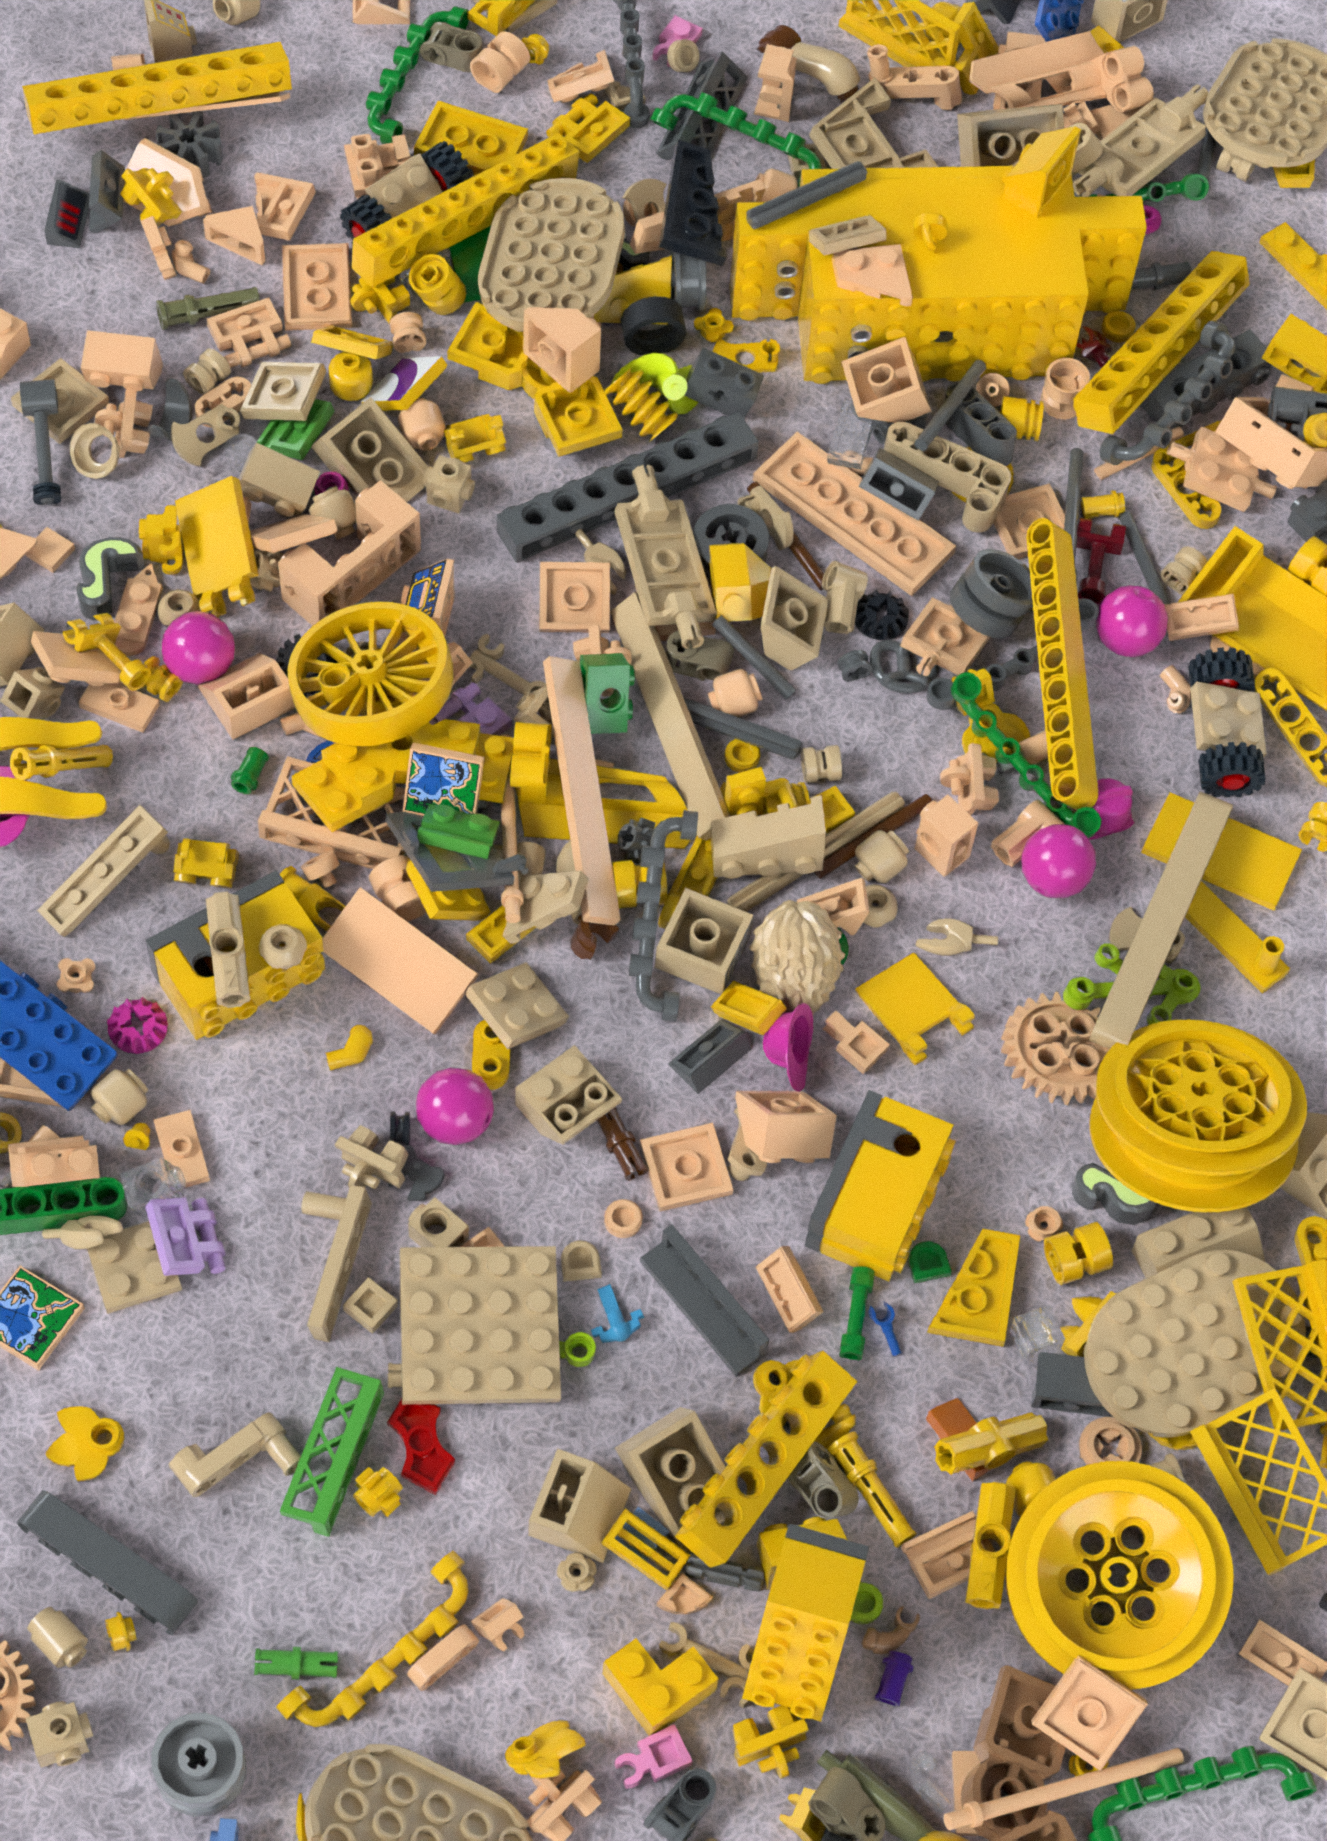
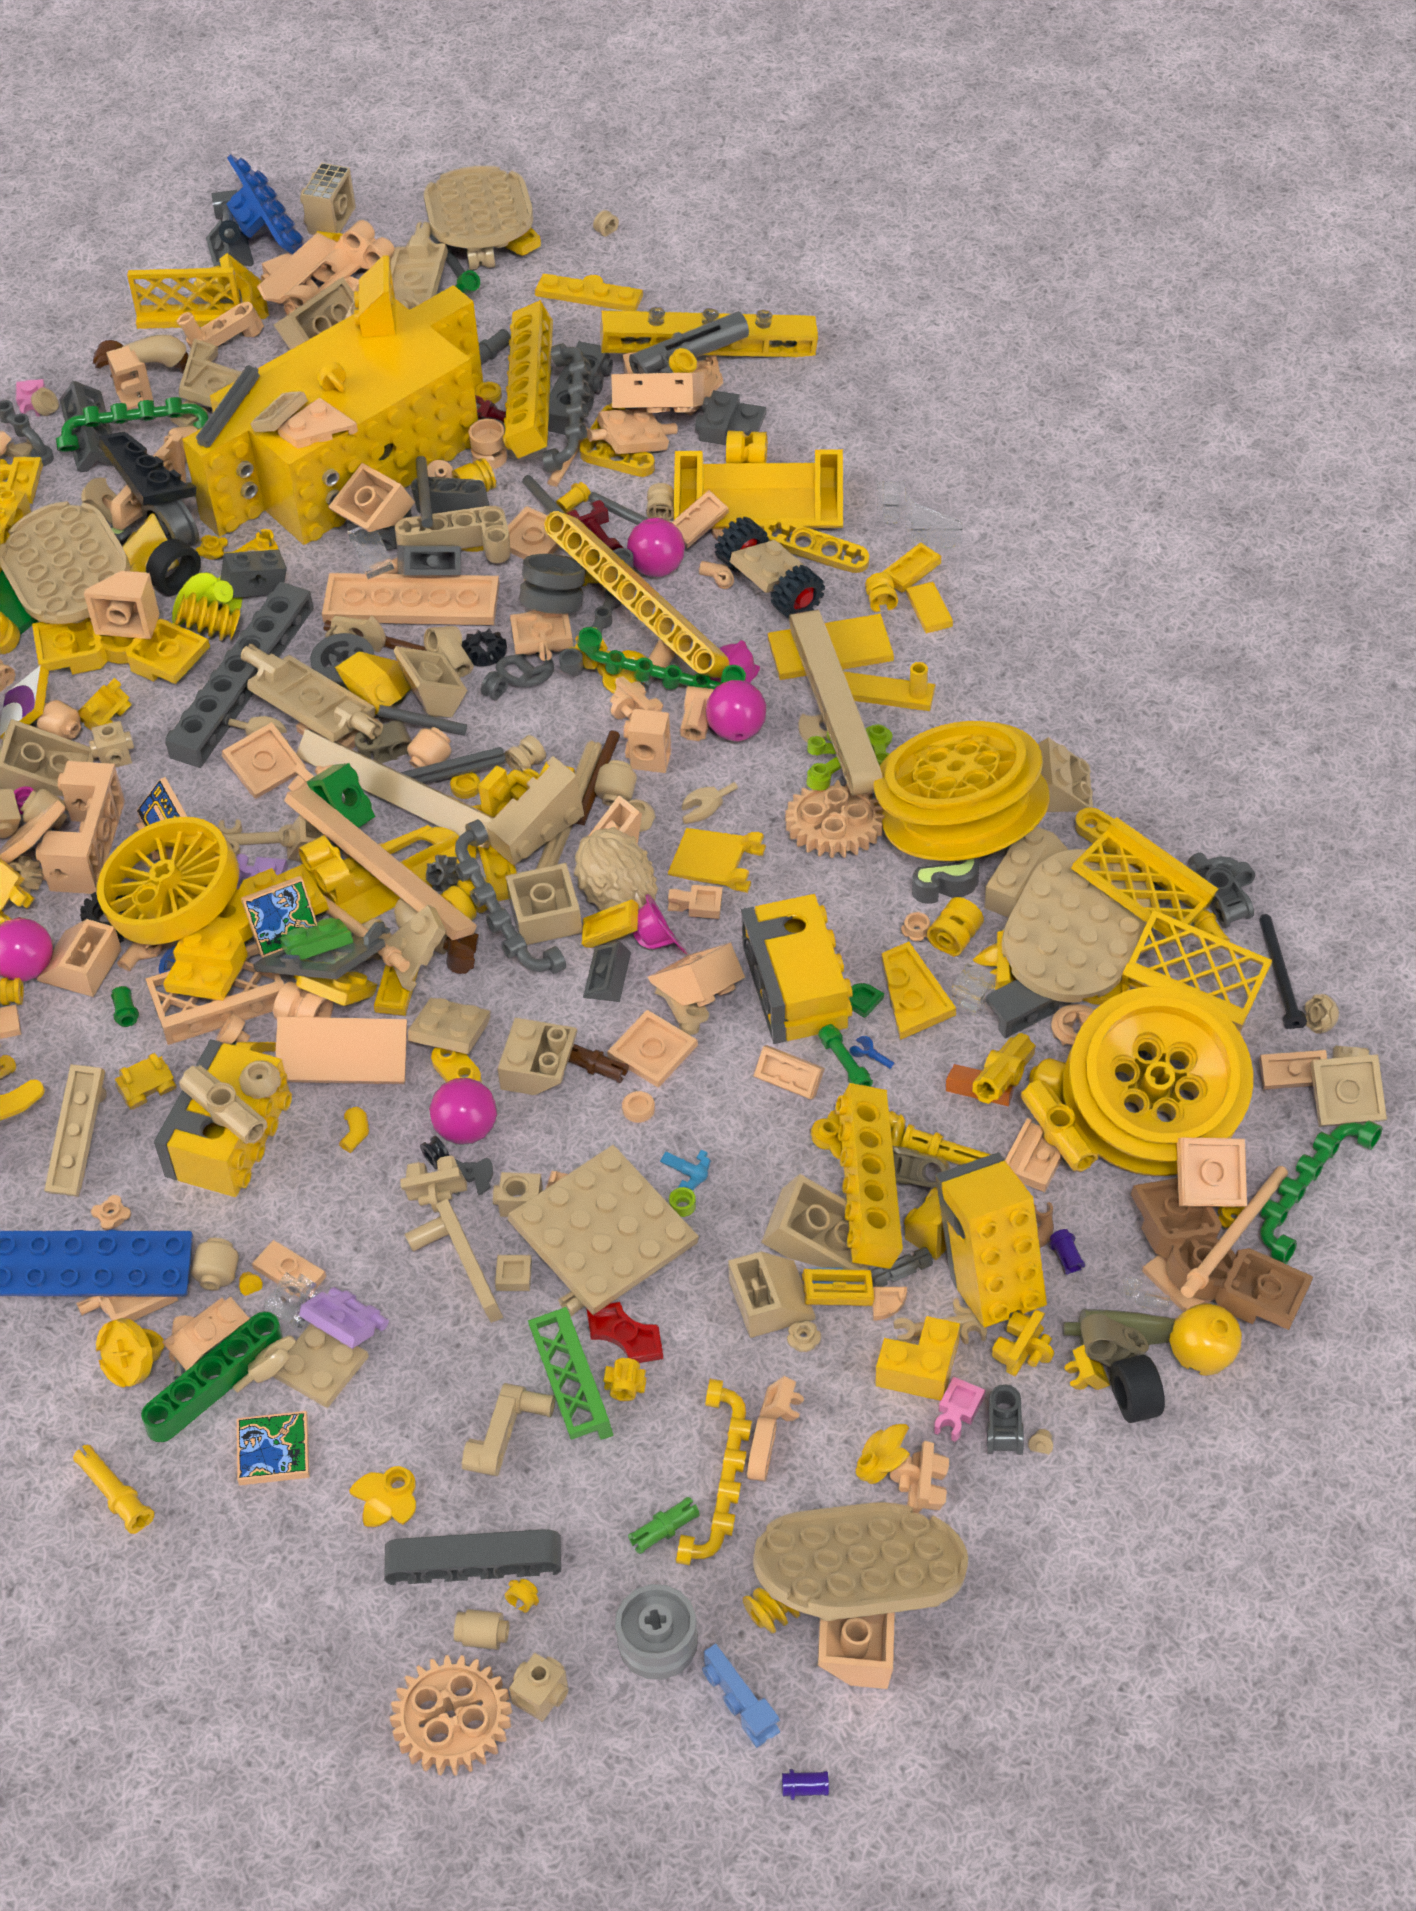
camera: 30 degrees left, 10 degrees down
(129, 1039) = (199, 1208): dark pink gear -> none
(580, 1261) = (635, 1149): tan tile -> none
(668, 910) = (504, 900): yellow tile -> none
(705, 1302) = (741, 1118): dark grey fence -> none

